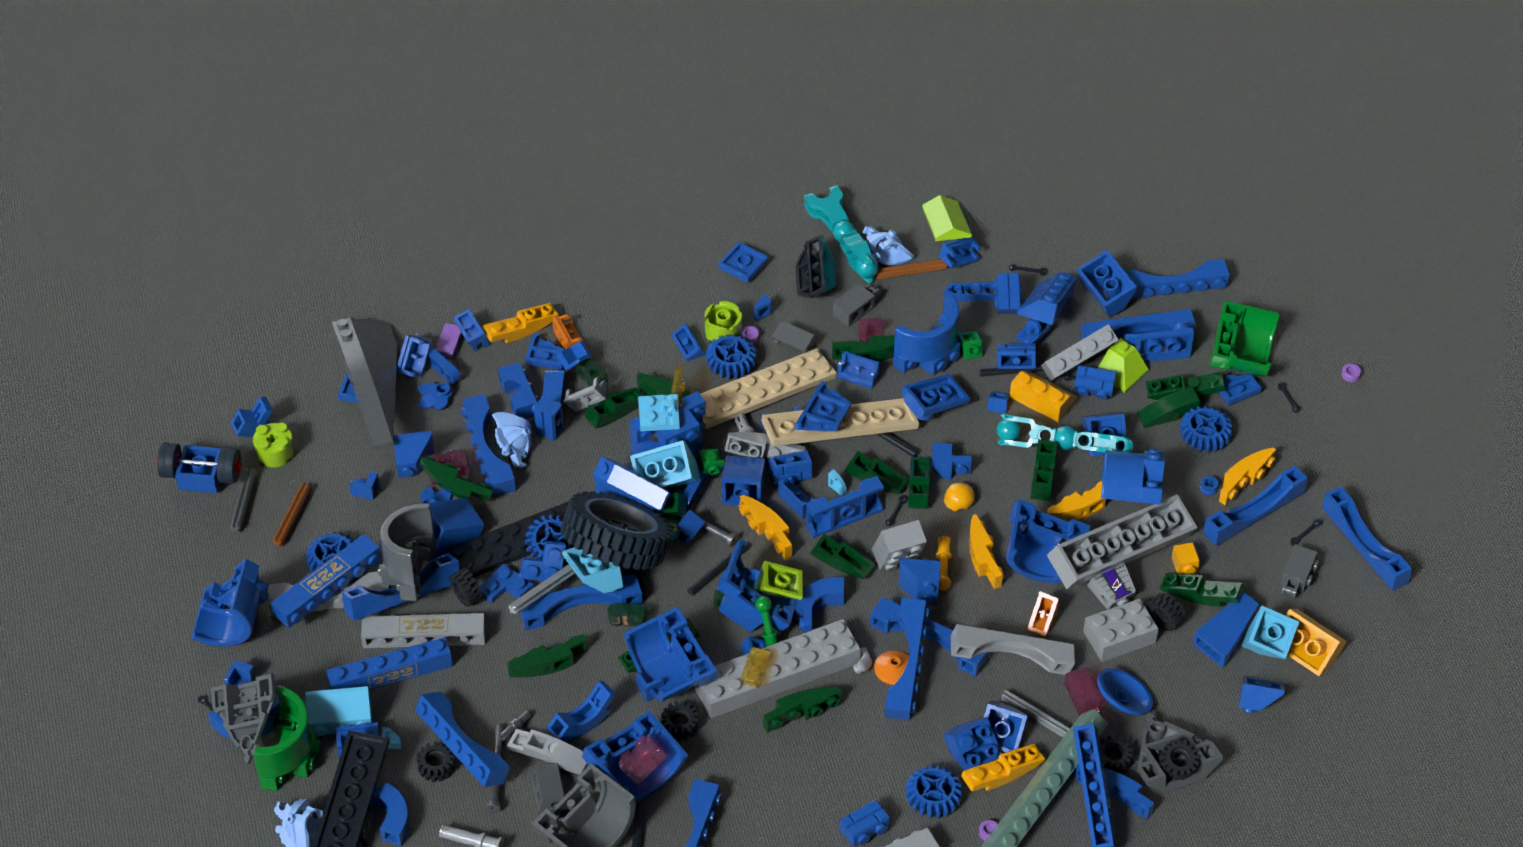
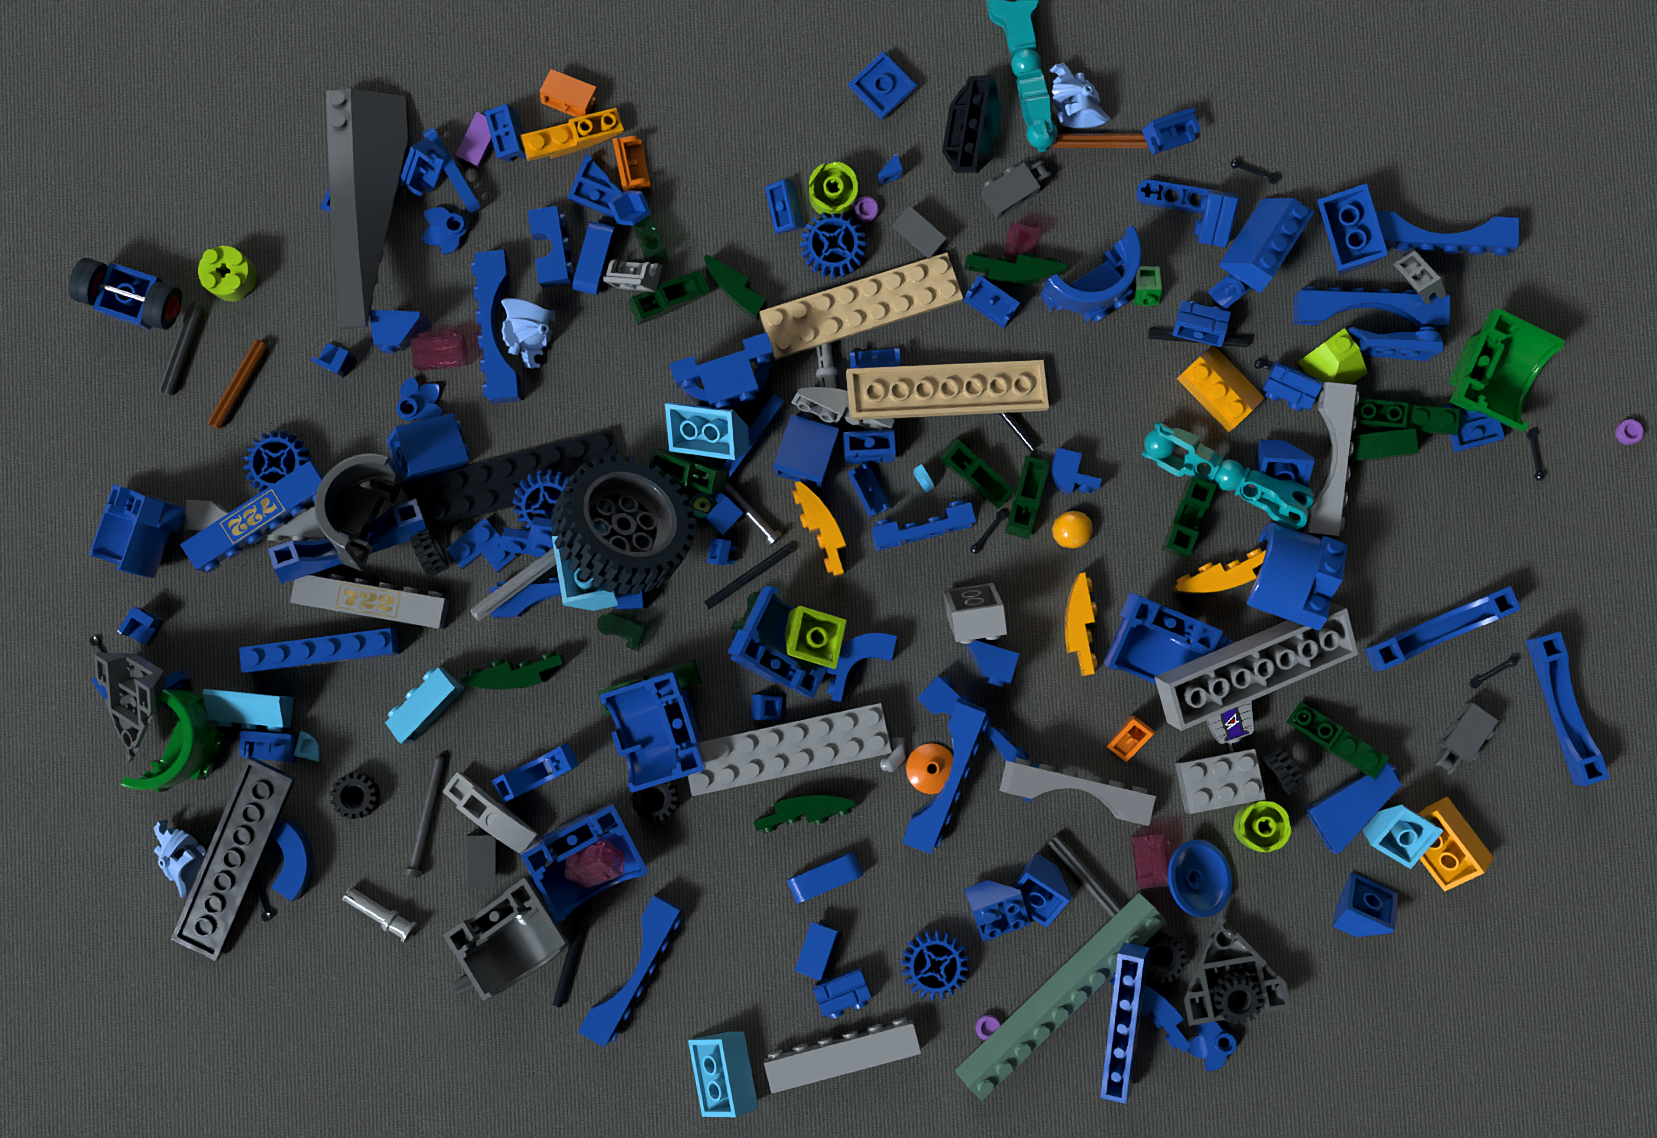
camera: 15 degrees right, 35 degrees up
(247, 421) = (206, 228): blue brick -> none
(446, 478) = (430, 380): dark green slope -> none
(482, 688) = (423, 705): none -> medium azure slope
(482, 763) = (406, 827): blue arch -> none
(510, 301) = (567, 94): none -> orange hinge
(514, 724) = (457, 763): flat silver bar -> none
(548, 418) = (576, 306): blue brick -> none
(620, 480) = (657, 441): wedge -> none
(658, 412) = (708, 361): medium azure hinge -> none
(678, 383) = (750, 296): clear yellow plate -> none
(692, 554) = (719, 552): none -> blue tile
(710, 461) = (768, 423): green bracket -> none
(752, 578) = (776, 630): blue panel -> none
(755, 667) = (756, 761): clear yellow plate -> none
(763, 605) = (787, 701): green pin -> none
(824, 411) = (928, 378): blue wing -> none
(829, 749) = (825, 877): none -> blue beam
(837, 798) = (818, 951): none -> blue hinge
(842, 557) = (904, 596): dark green slope -> none
(933, 396) = (1079, 372): blue slope -> none
(944, 554) = (1031, 616): light orange pin -> none
(946, 219) = (1166, 71): lime slope -> none
(998, 402) = (1160, 385): blue slope -> none
(1004, 770) = (1024, 951): light orange slope -> none
(1079, 352) = (1284, 340): light grey brick -> none
(1131, 386) = (1337, 407): none -> light grey arch
(1162, 651) = (1274, 818): none -> lime brick
(1165, 299) = (1420, 276): none -> dark grey hinge
(1170, 809) = (1207, 1045): none -> blue plate
(1185, 558) = (1330, 689): light orange brick -> none
(1206, 423) = (1418, 498): blue gear -> none
(1210, 481) = (1394, 569): blue bush -> none
(1246, 471) = (1451, 567): light orange slope -> none

